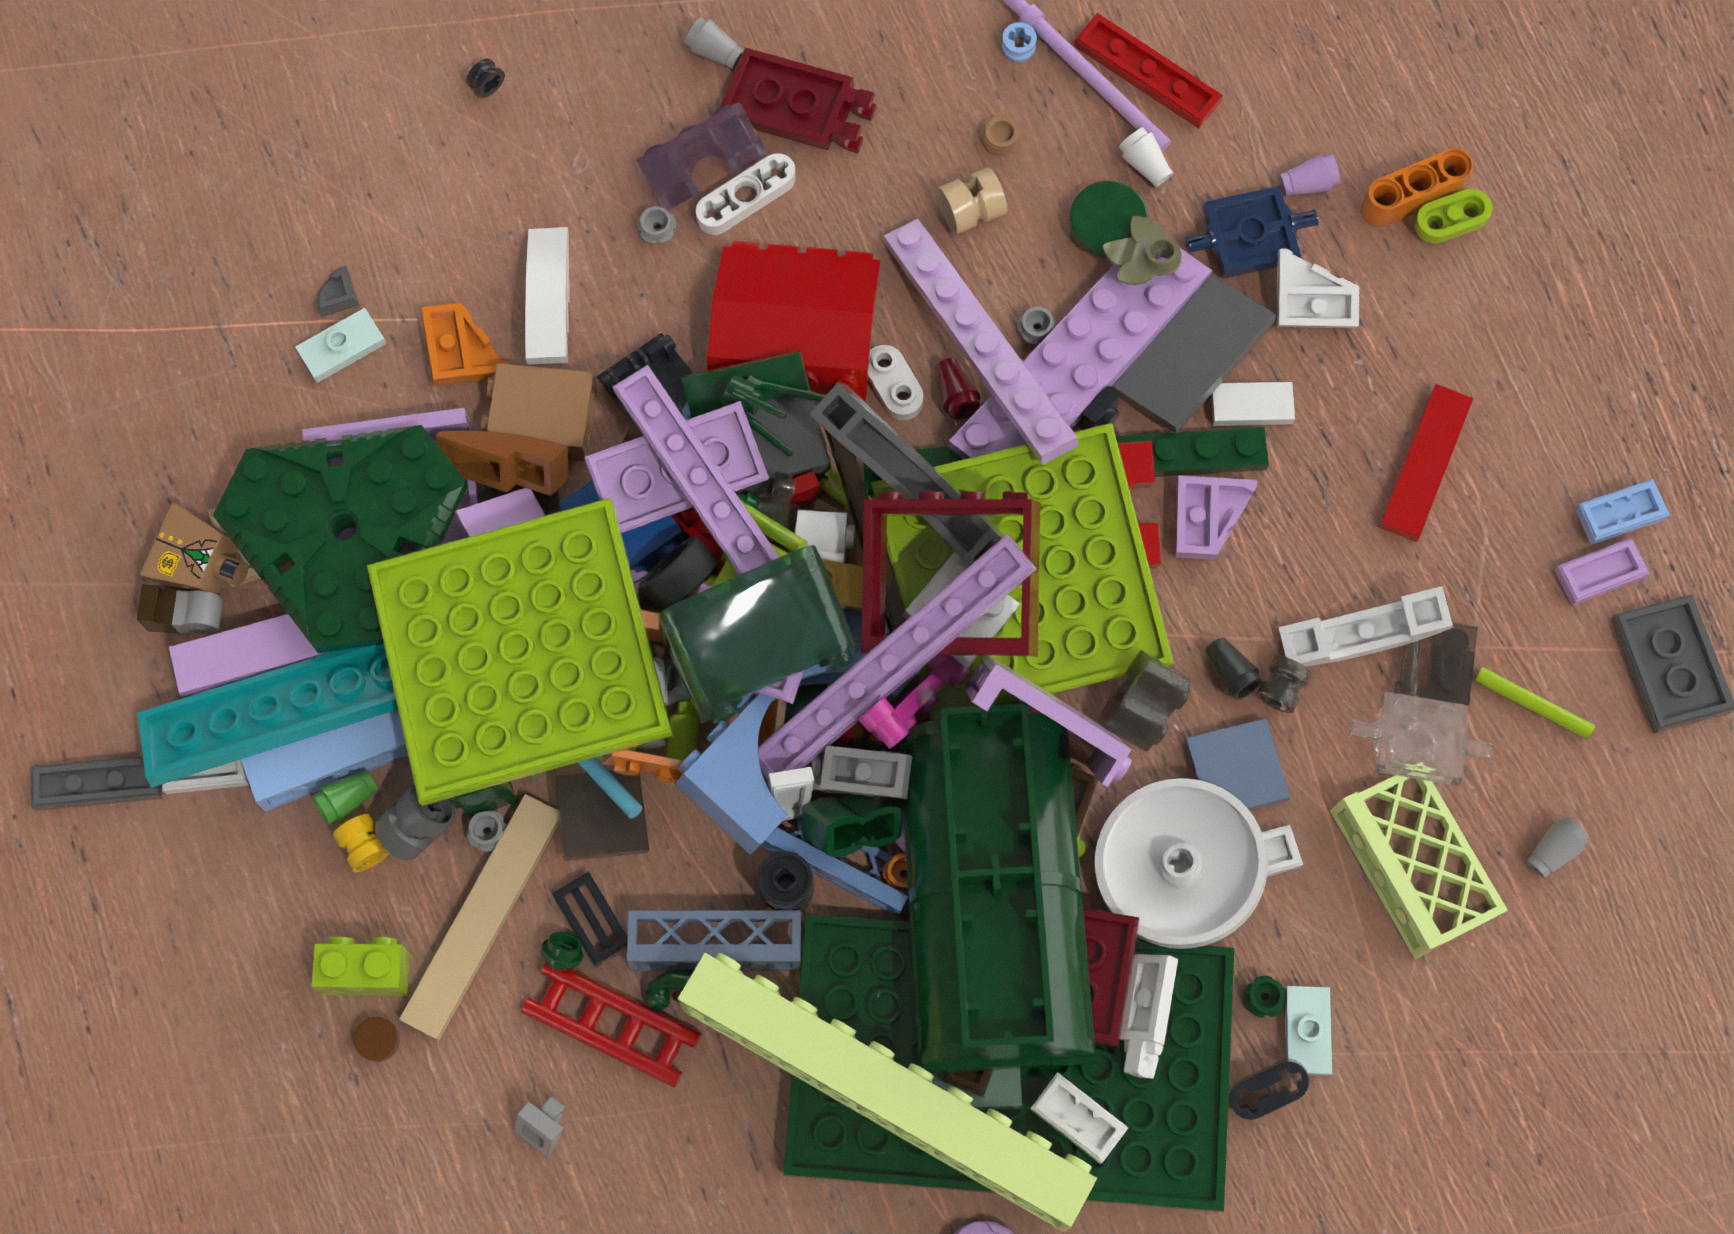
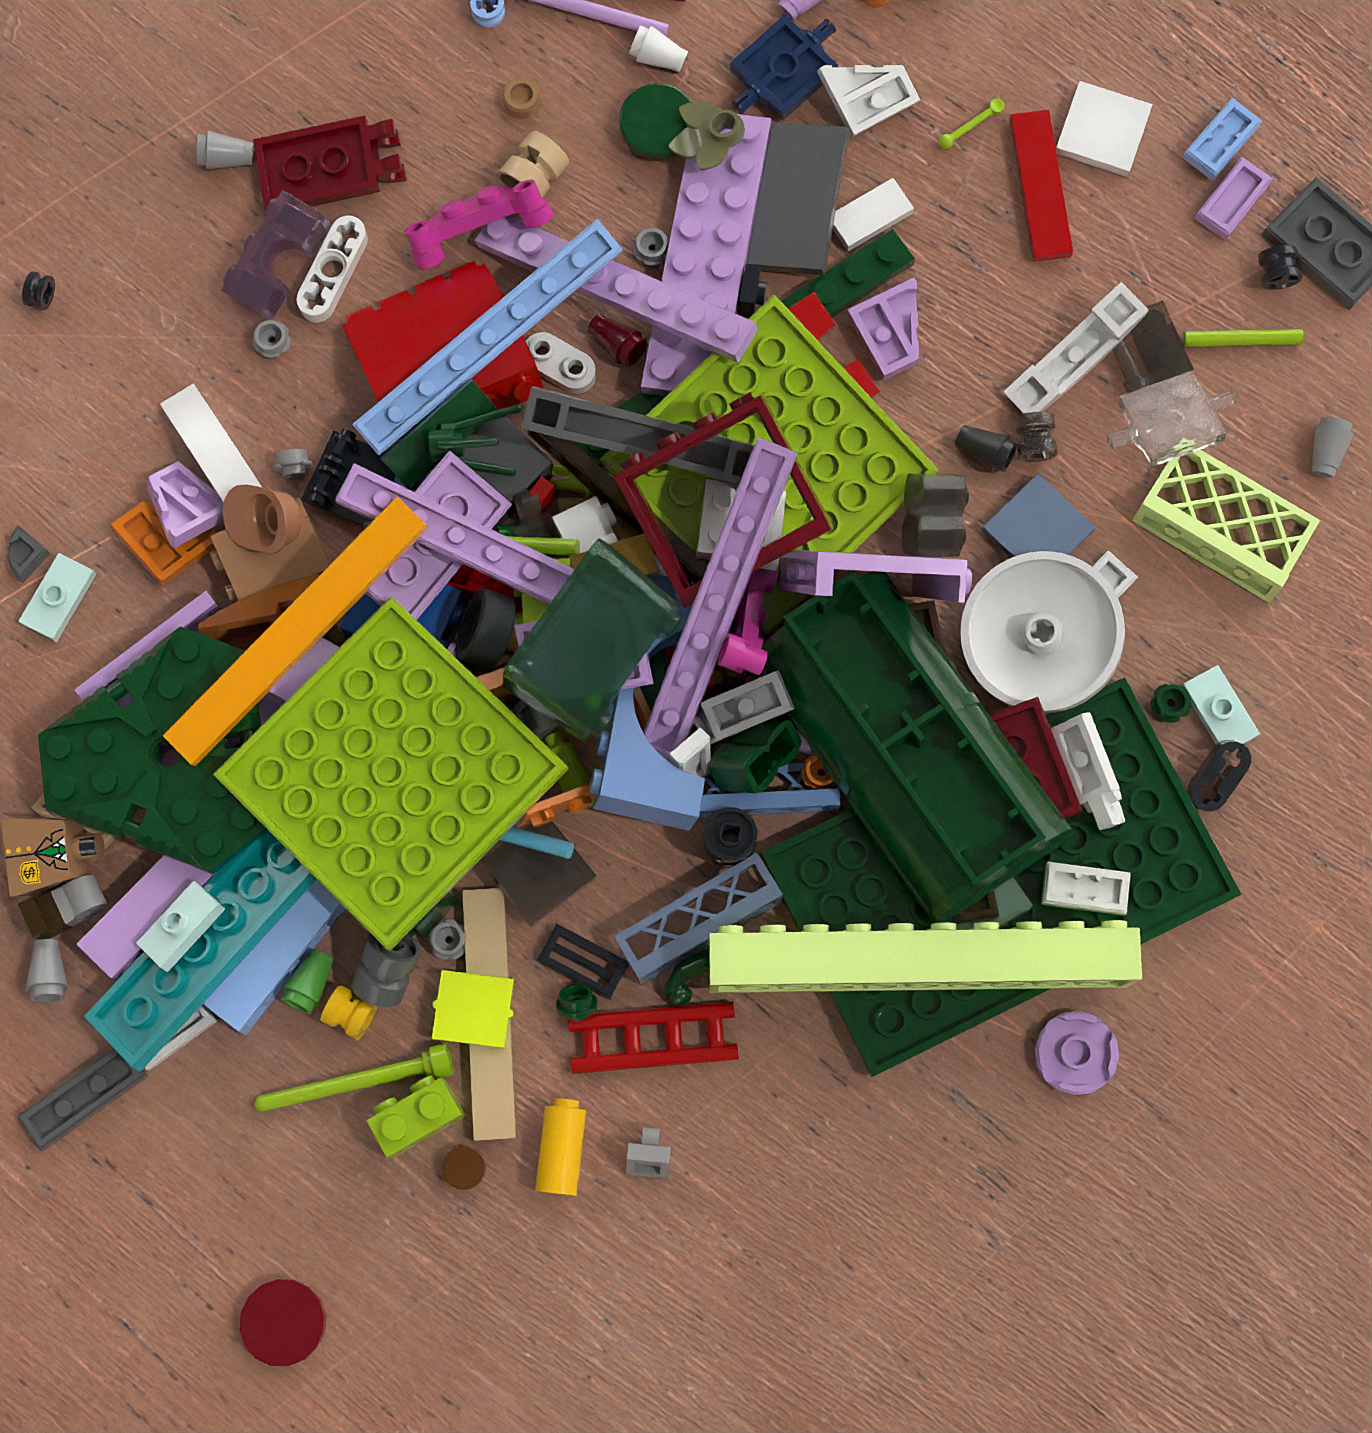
camera: 30 degrees left, 5 degrees up
(130, 660) = (46, 973): none -> light grey cone
(139, 1080) = (282, 1322): none -> dark red tile
(262, 681) = (180, 926): none -> light aqua plate
(409, 930) = (433, 1062): none -> lime piece
(469, 903) = (473, 1009): none -> neon yellow piece
(469, 1071) = (561, 1148): none -> yellow brick
(493, 324) = (183, 503): none -> lavender wing
(511, 481) = (295, 631): none -> light orange tile
(547, 371) = (261, 518): none -> nougat piece
(608, 341) = (292, 463): none -> light grey plate
(838, 322) = (487, 337): none -> light blue tile
(882, 208) = (462, 216): none -> dark pink plate
(1426, 371) = (995, 108): none -> lime hinge
(1515, 443) = (1103, 128): none -> white tile
(1606, 657) = (1279, 267): none -> black wheel

